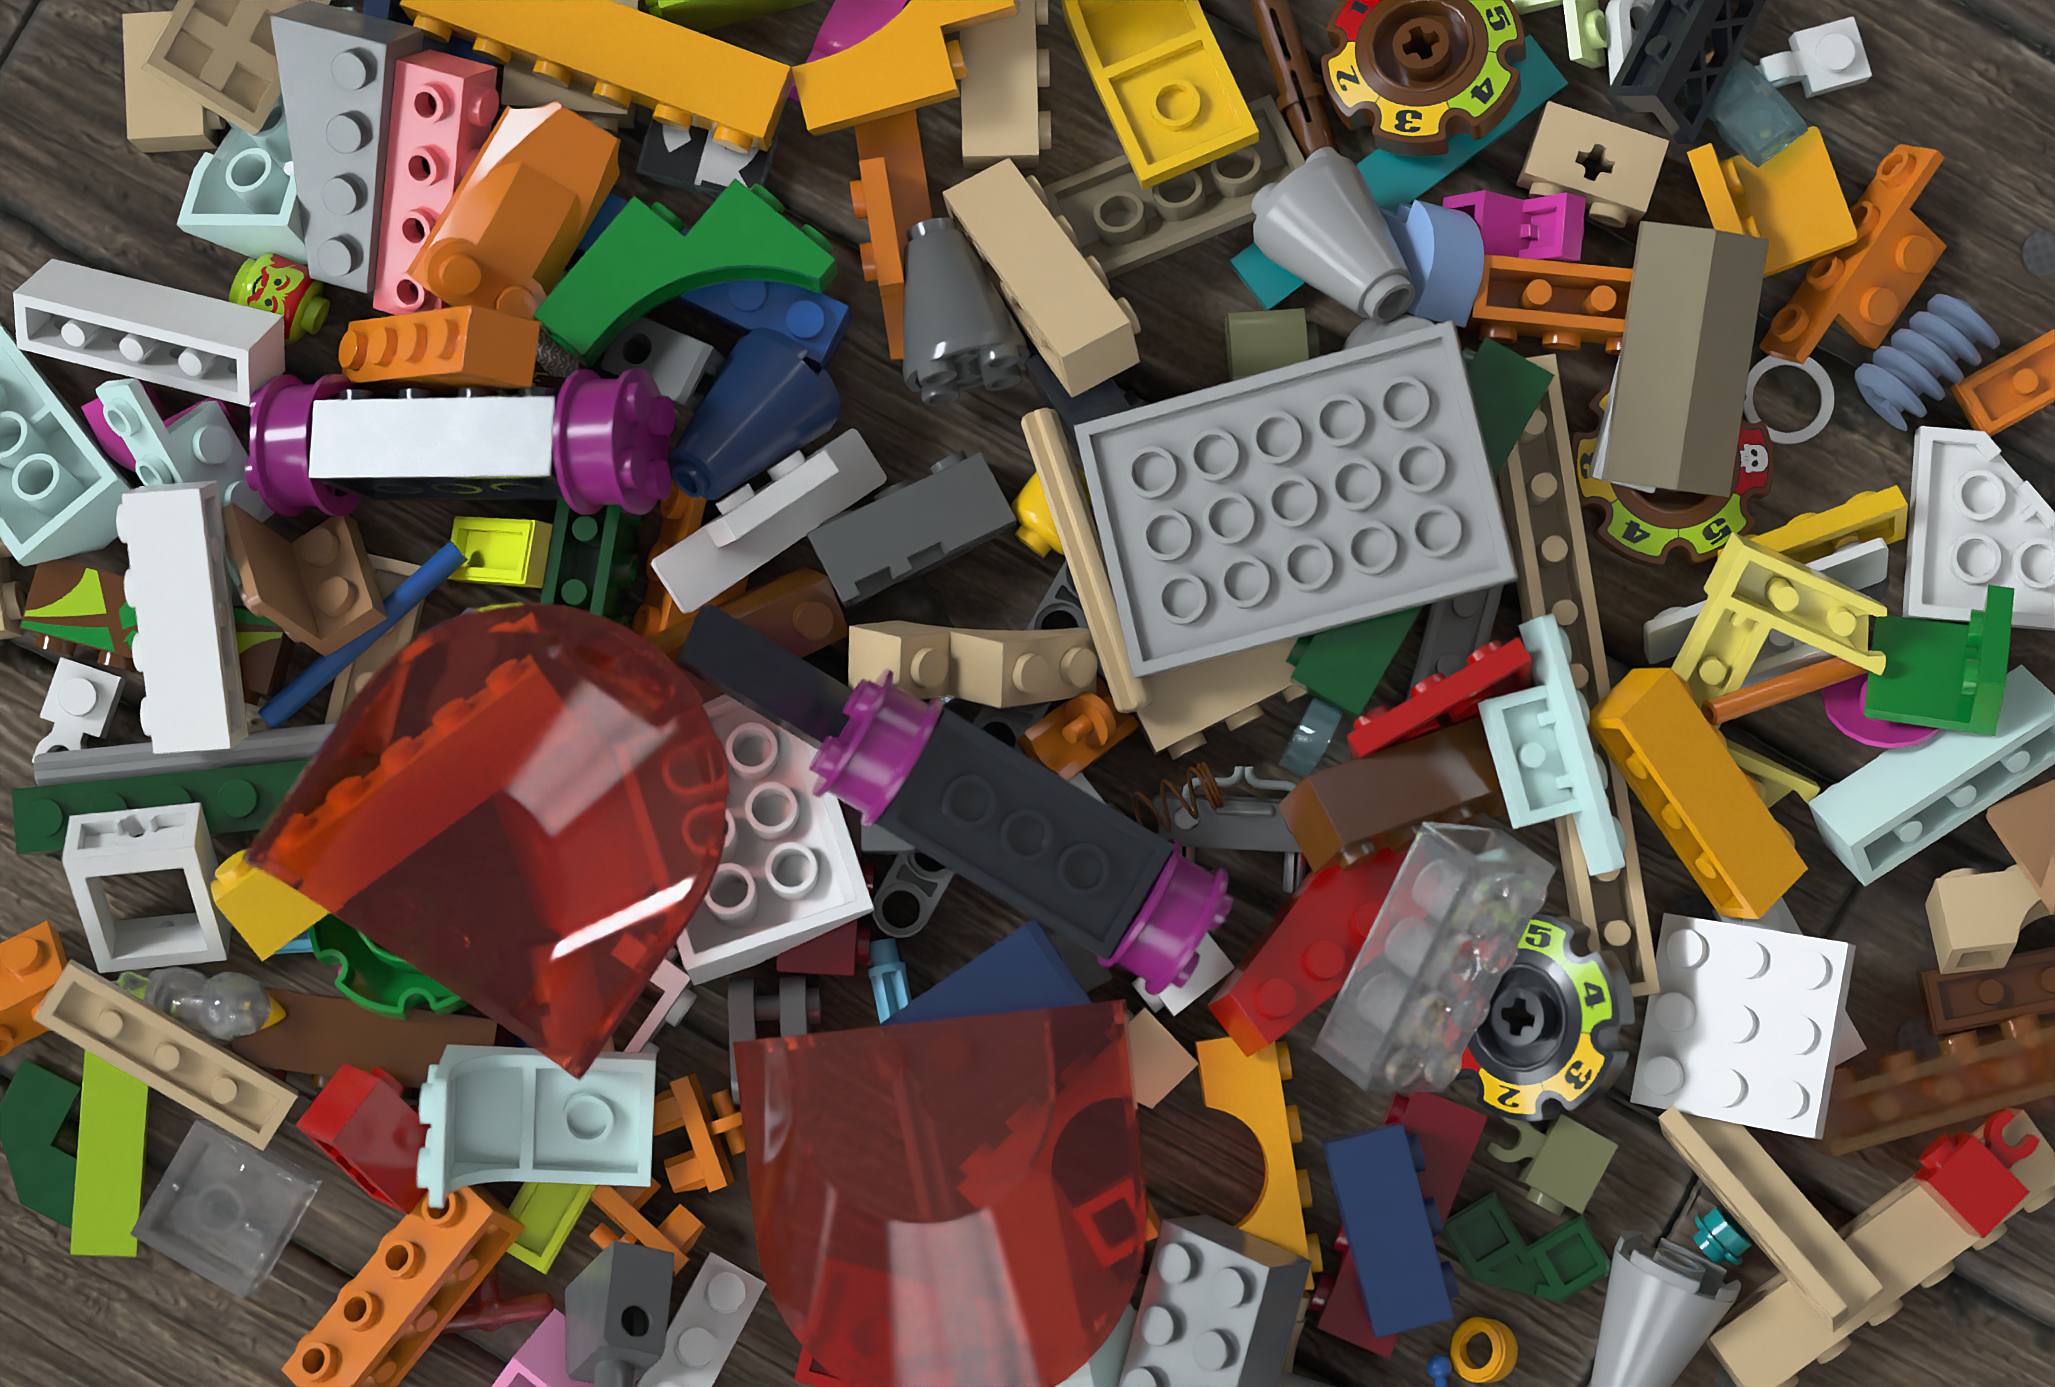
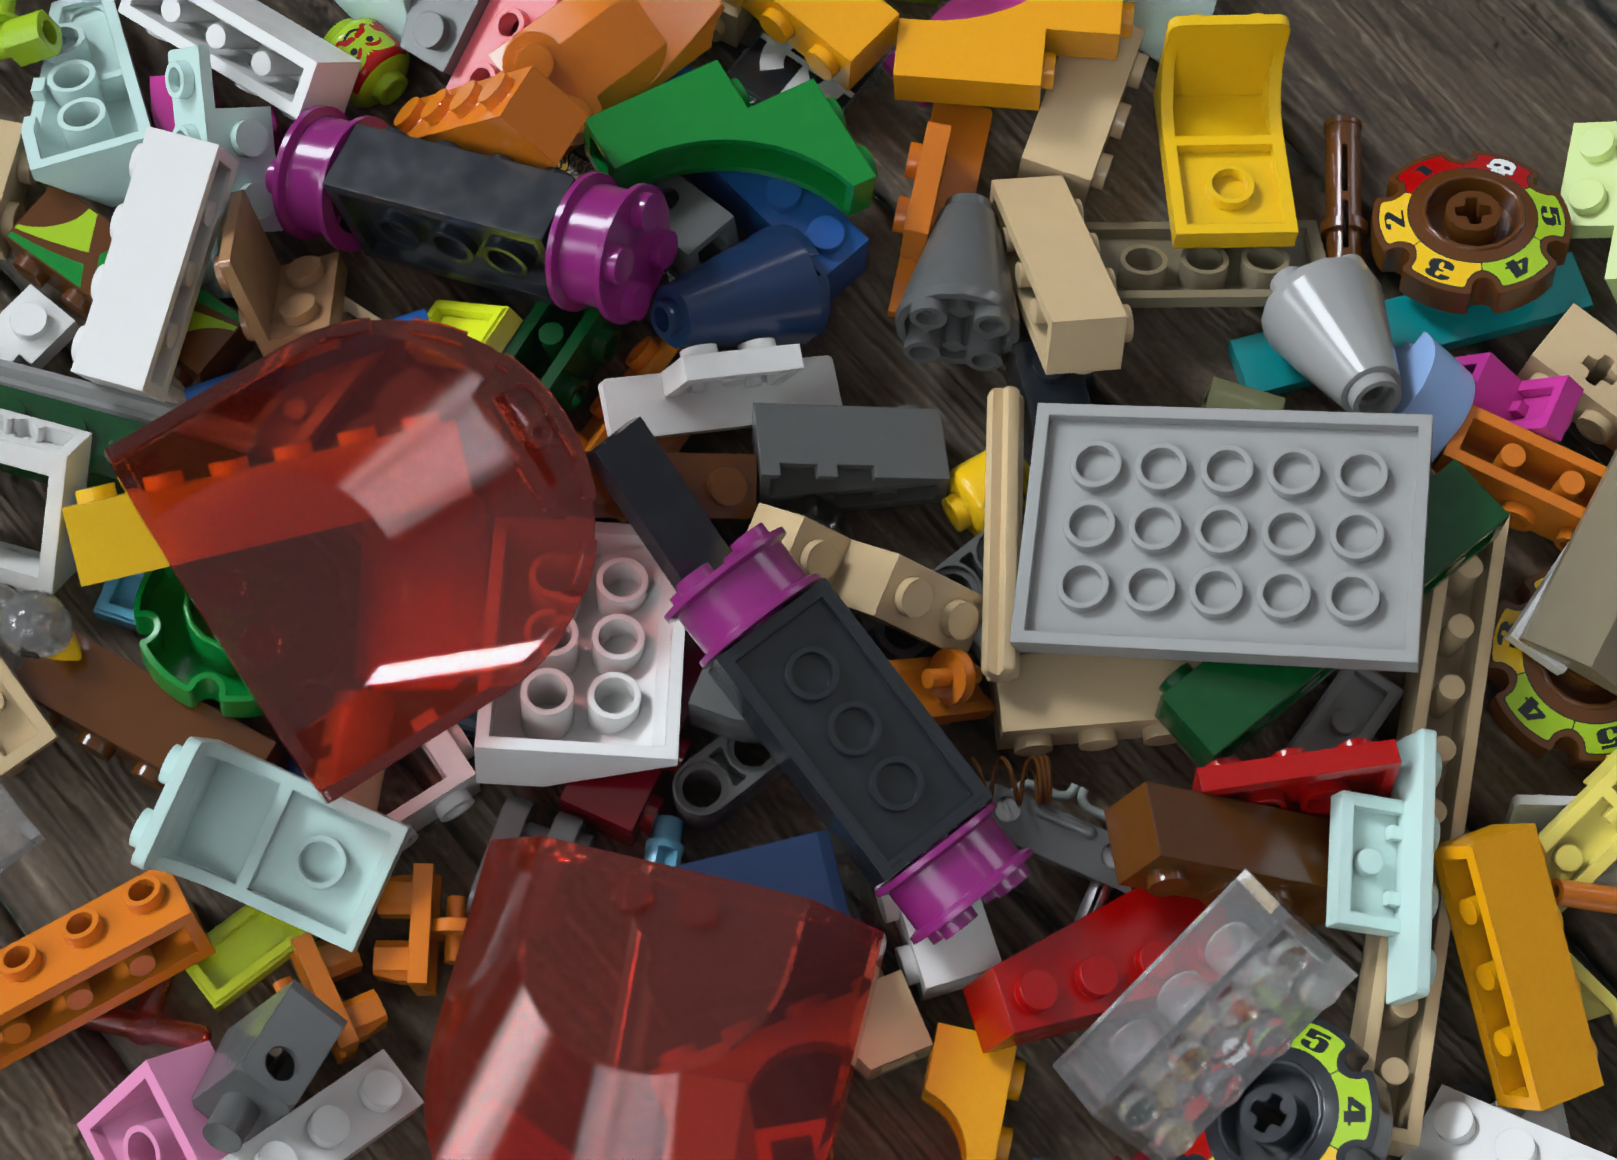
camera: 15 degrees right, 15 degrees down
(370, 1134) = (102, 790): red brick -> none
(1310, 738) = (1162, 766): clear light blue beam -> none

